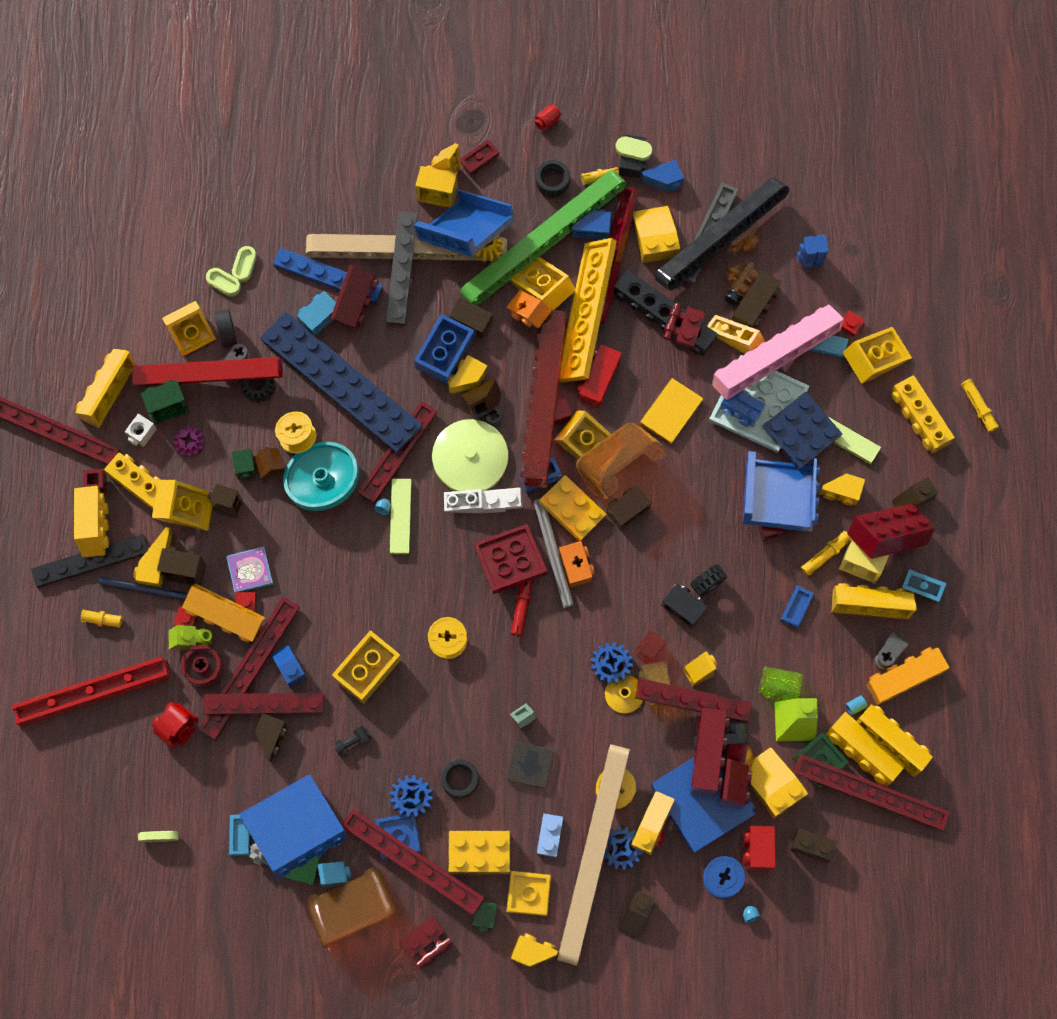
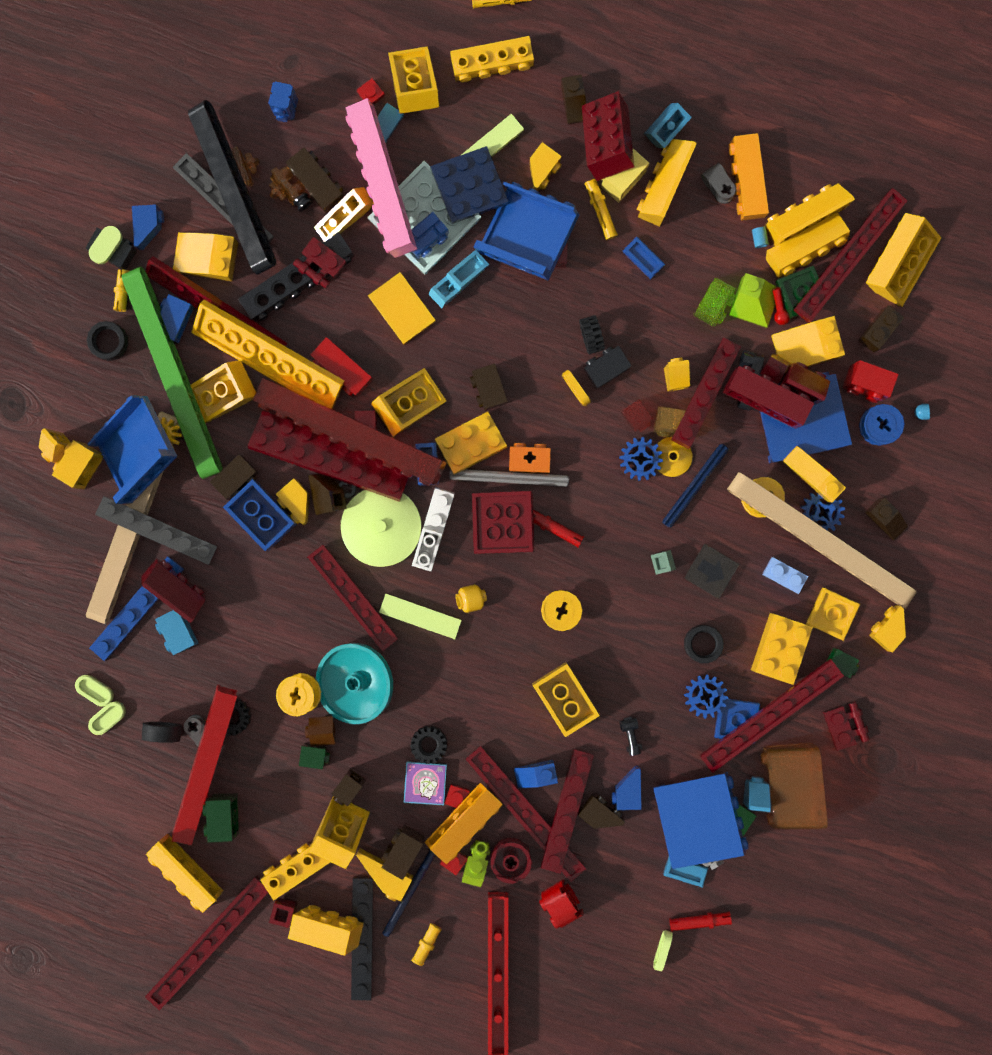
camera: 70 degrees left, 15 degrees up
(140, 423) = (242, 841): white brick -> none
(189, 328) = (147, 769): yellow slope -> none
(193, 447) = (266, 795): magenta gear -> none
(196, 864) = (701, 921): none -> red pin
(283, 550) = (429, 757): none -> black tyre
(298, 755) = (628, 791): none -> blue slope
(341, 382) = (259, 631): dark blue plate -> none
(383, 506) = (404, 630): dark azure hinge -> none
(431, 554) = (471, 598): none -> yellow head
(479, 157) = (57, 409): dark red plate -> none
(515, 379) = (305, 449): none -> dark red plate
(528, 309) = (247, 415): orange brick -> none
(547, 117) = (36, 322): red brick -> none
(605, 723) = (695, 485): none -> dark blue axle
(613, 454) = (435, 380): clear orange windscreen -> none
(655, 584) = (576, 388): none -> yellow tile
(715, 449) = (458, 279): none -> medium azure slope
(792, 749) = (781, 316): none -> red bar
(887, 846) = (904, 259): none -> yellow slope

